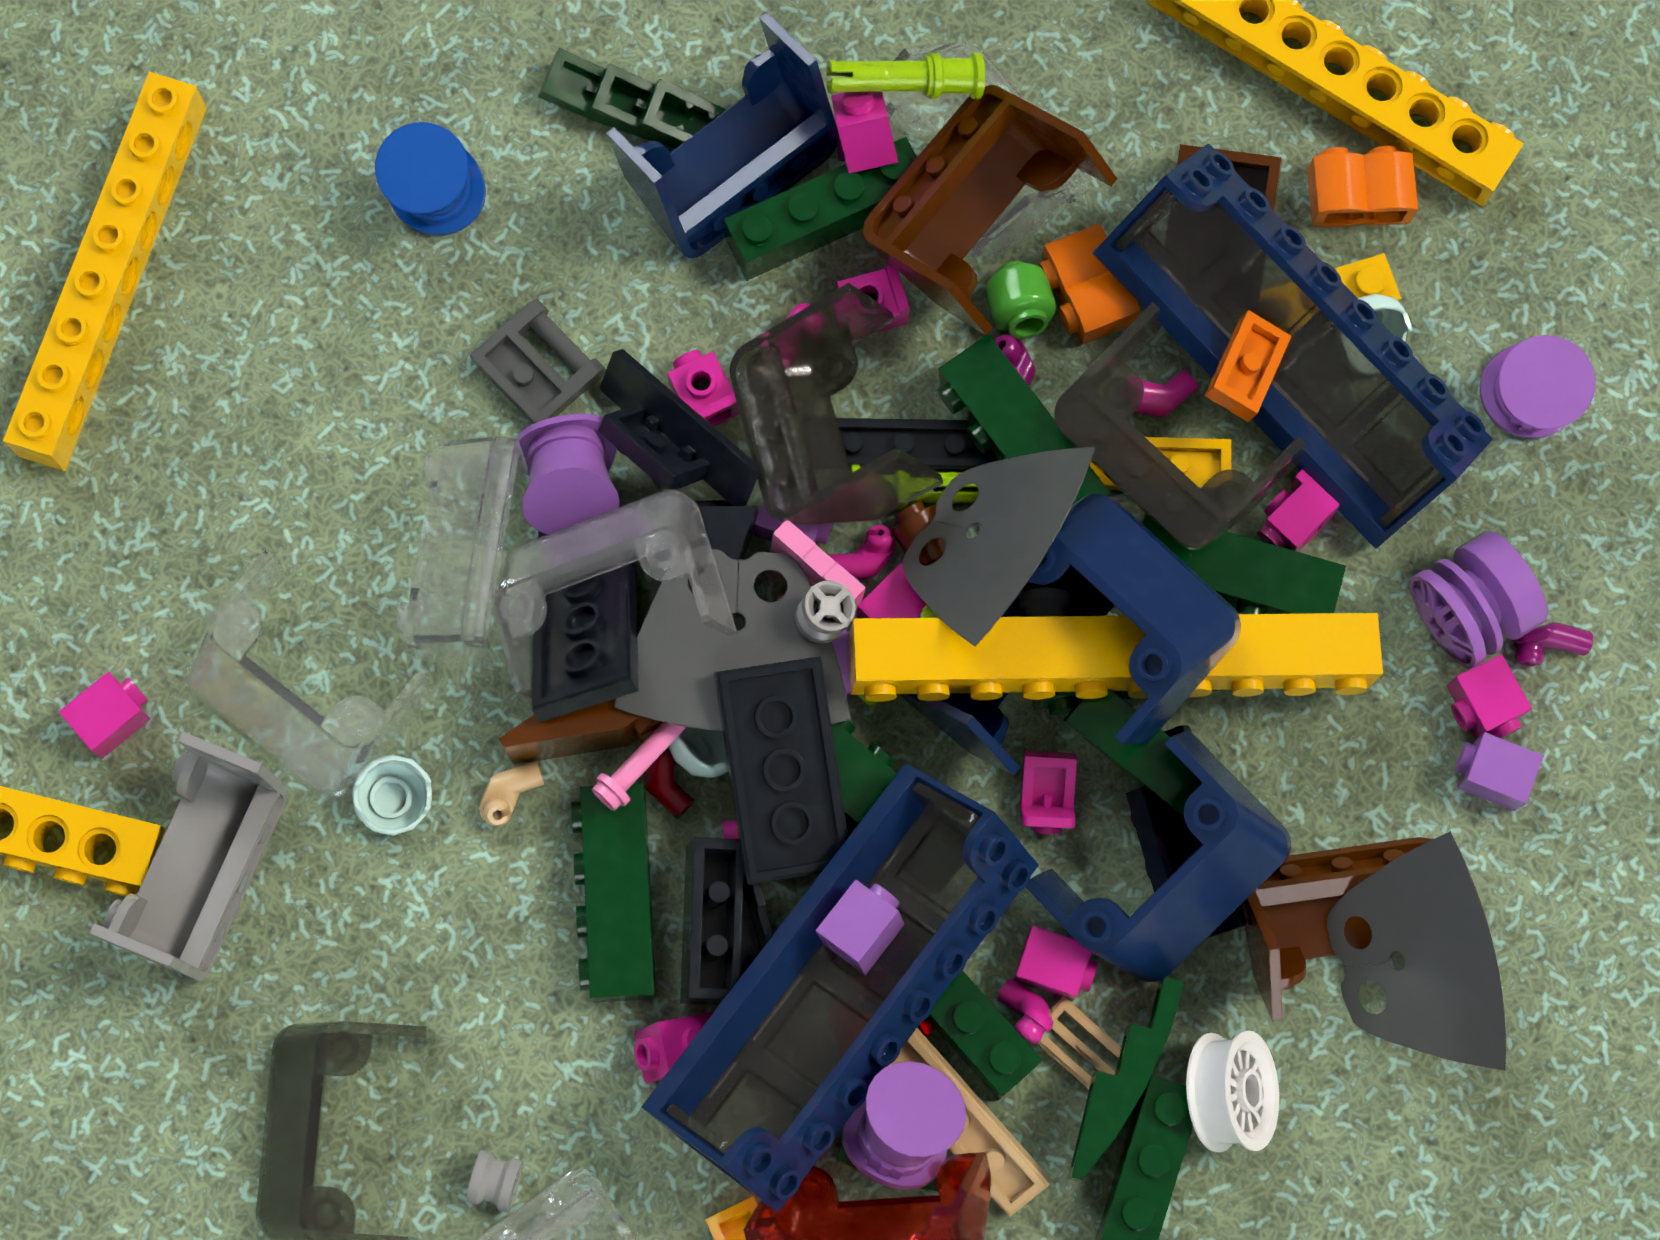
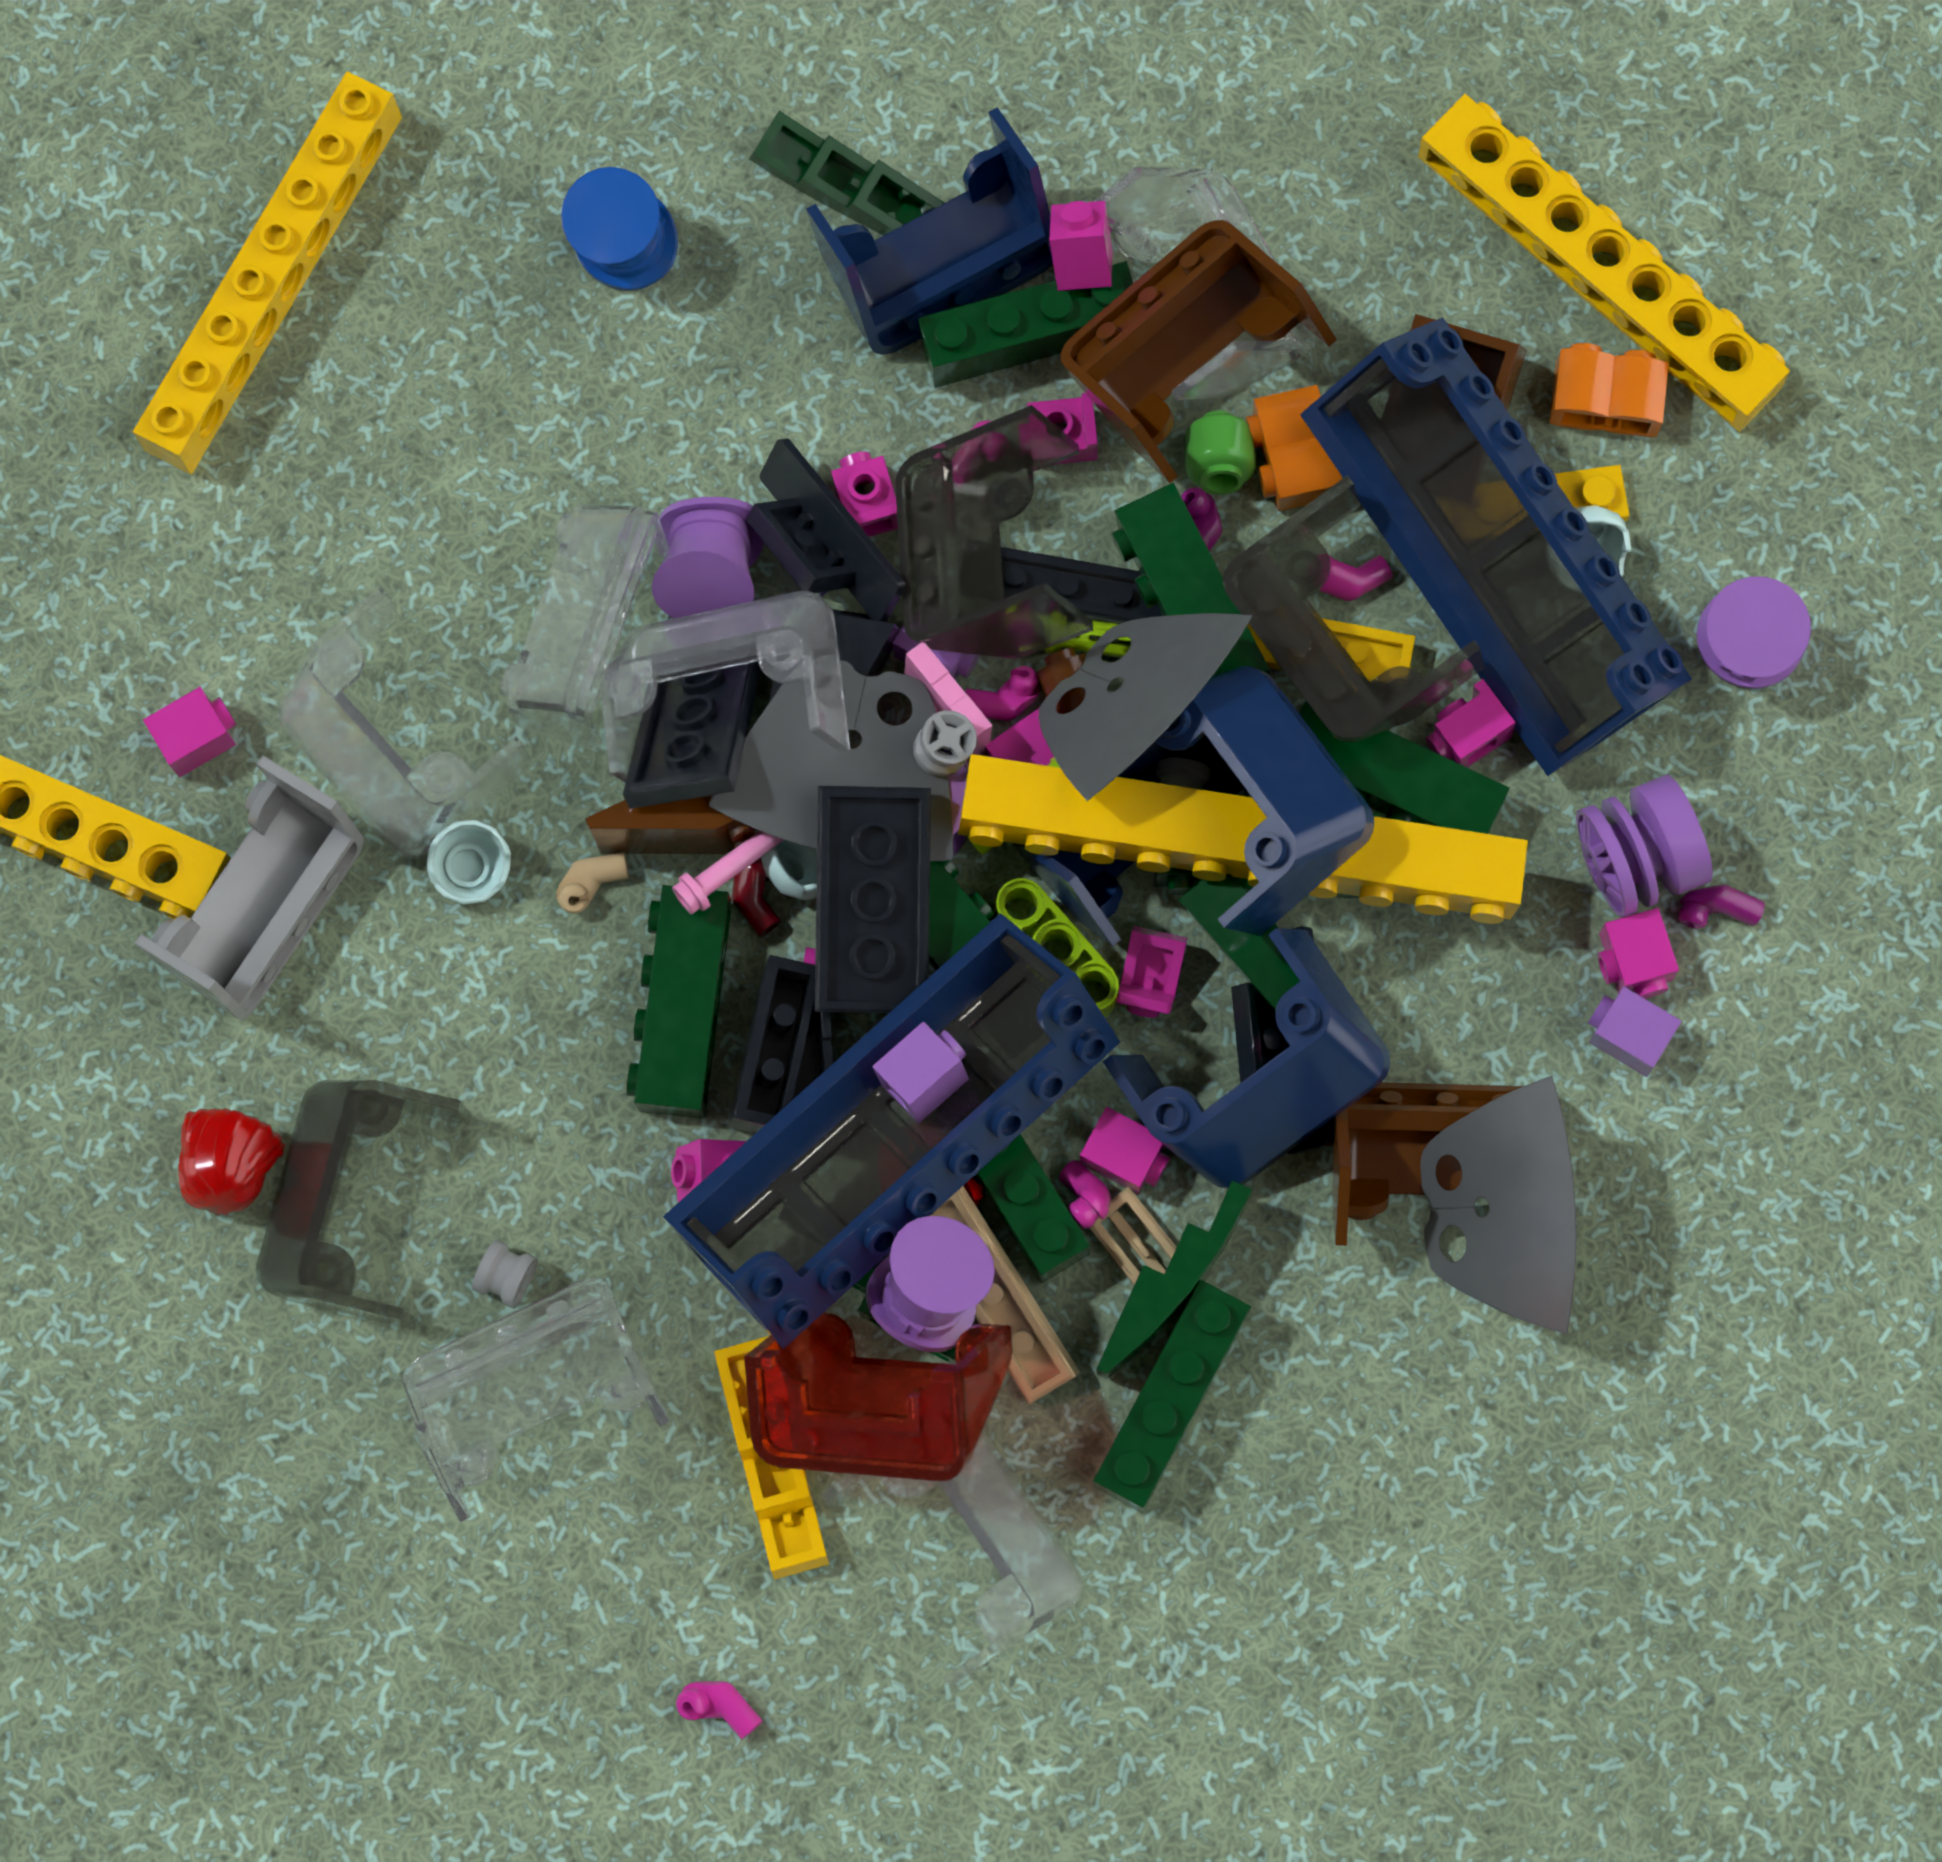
camera: 20 degrees right, 0 degrees up
(208, 1118) = (225, 1159): none -> red hair
(525, 375) = (684, 450): dark grey plate -> none
(931, 76) = (1157, 200): lime pin -> none
(948, 760) = (1051, 924): none -> lime beam
(1232, 1091) = (1283, 1312): white wheel -> none
(1248, 366) = (1441, 559): orange plate -> none

